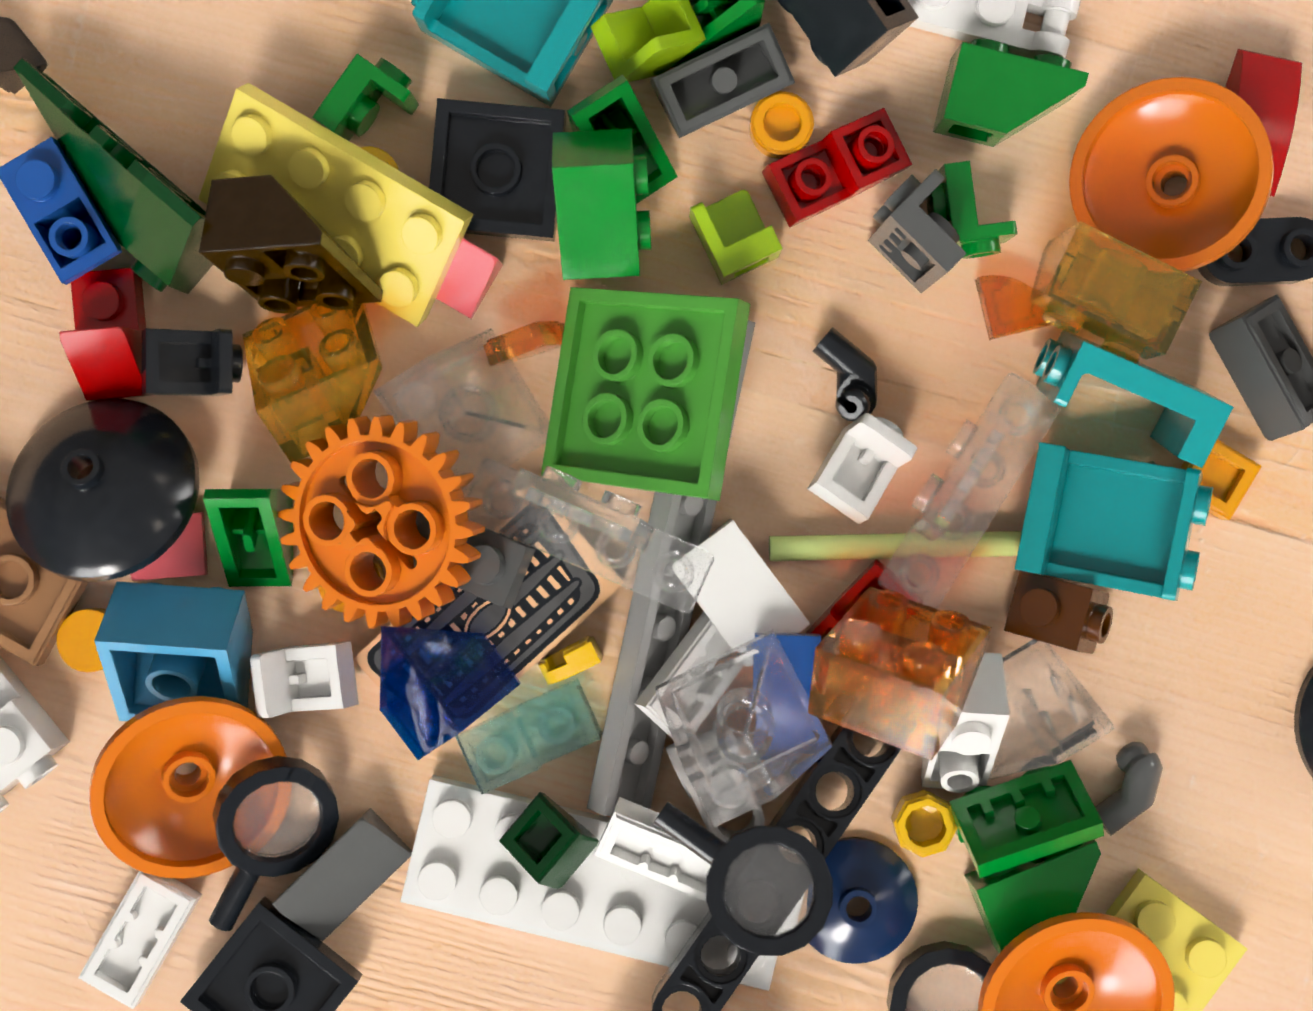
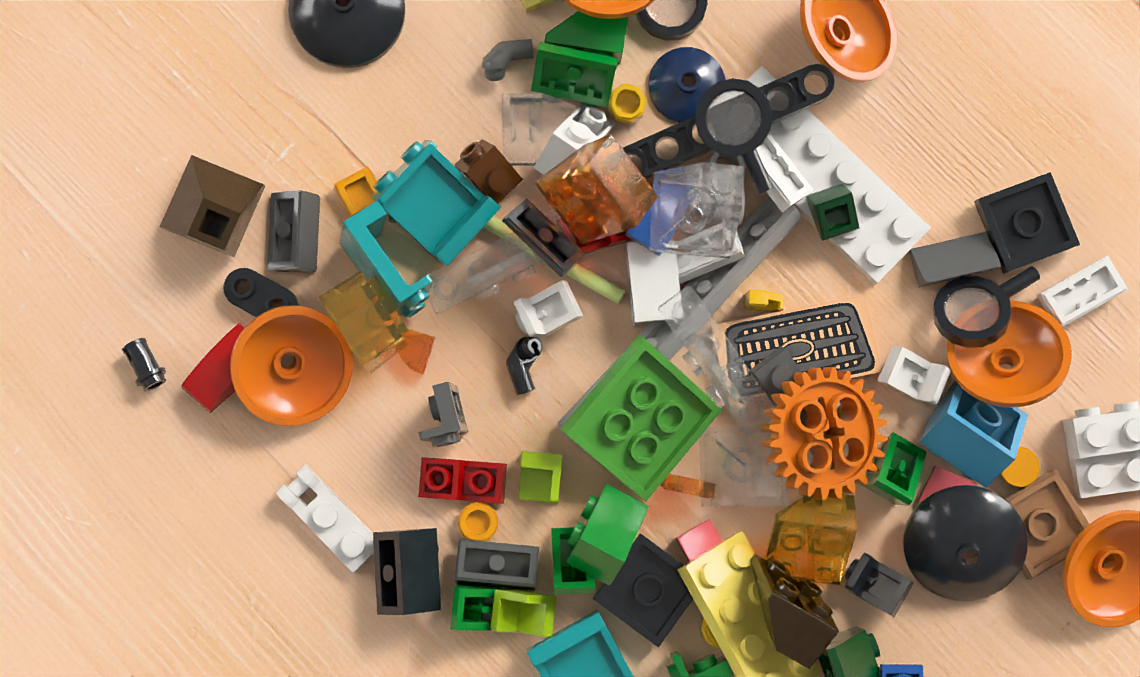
camera: 160 degrees left, 5 degrees down
(107, 334) = (913, 627): red slope -> none
(438, 683) = (842, 328): clear blue slope -> none
(529, 736) = (810, 274): clear light blue slope -> none
(933, 557) = (543, 237): none -> black slope
(956, 203) = (414, 416): green bracket -> none
(1001, 93) = (352, 464): green slope -> none

